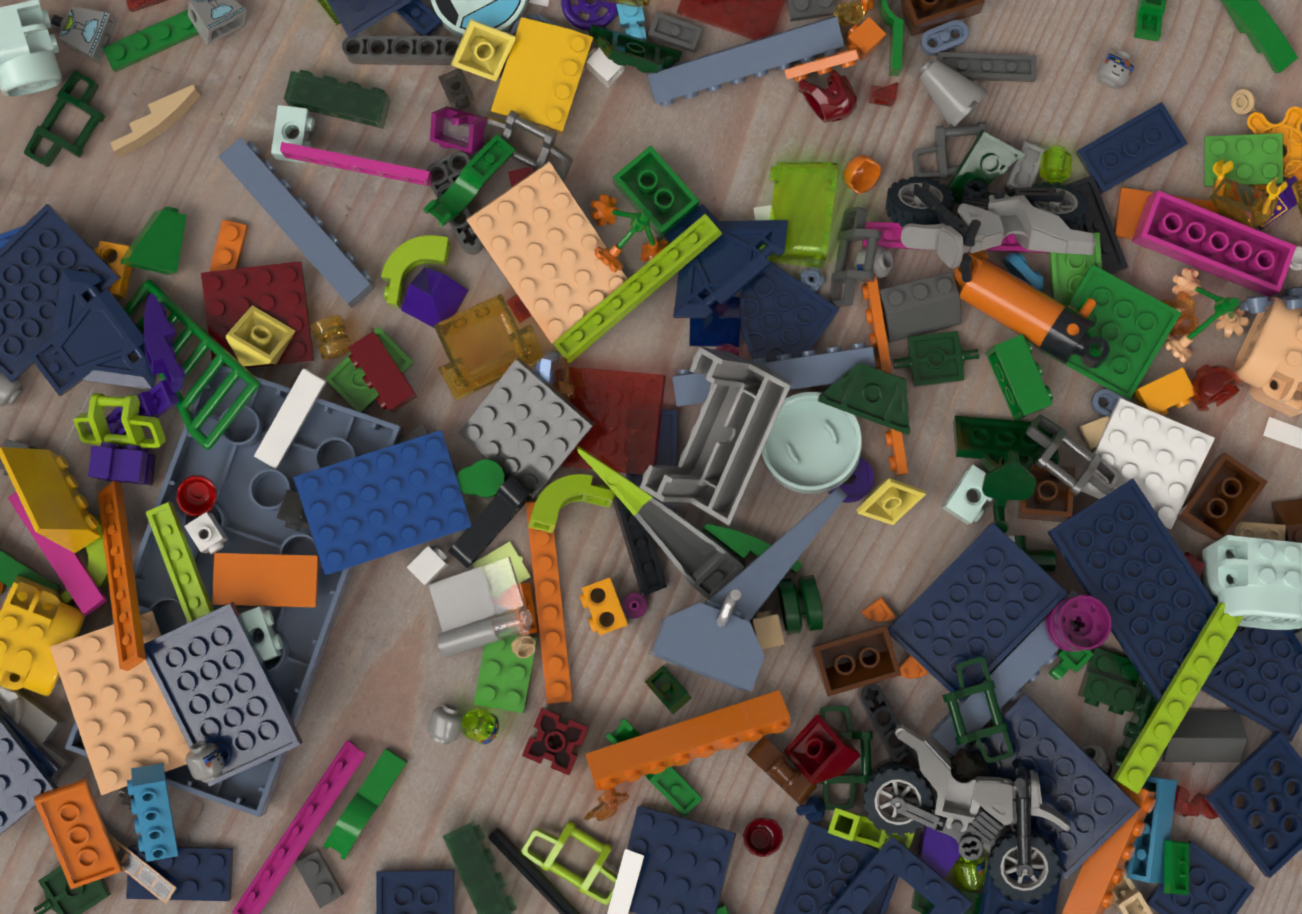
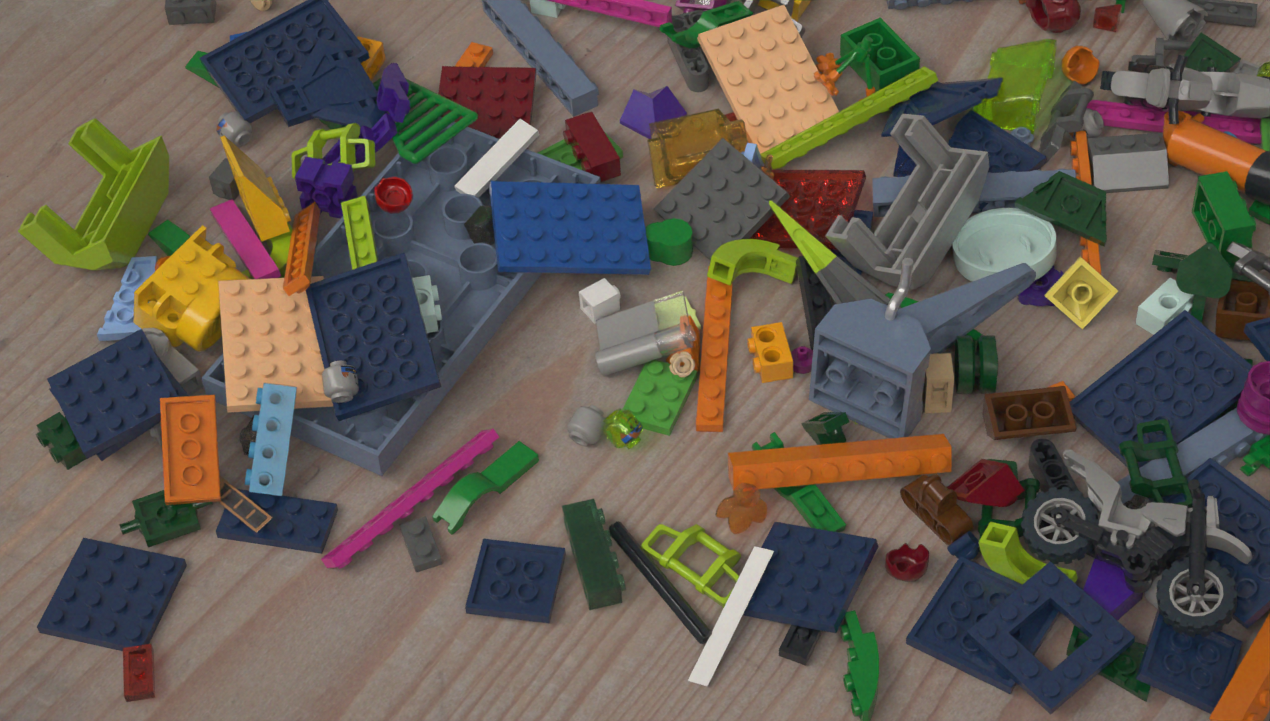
camera: 15 degrees right, 35 degrees down
(158, 243) = (407, 45): green slope -> none
(207, 533) = (395, 229): white brick -> none
(259, 338) = (492, 114): light yellow slope -> none
(265, 580) = (450, 269): orange tile -> none
(328, 329) = (550, 123): clear yellow wheel -> none
(409, 255) = (642, 77): lime arch -> none
(490, 522) = (675, 271): black beam -> none
(541, 747) = (698, 448): dark red brick -> none
(912, 668) = (1089, 446): orange tile -> none
(935, 359) = (1141, 204): dark green plate -> none
(969, 873) = (1137, 619): clear neon green head -> none

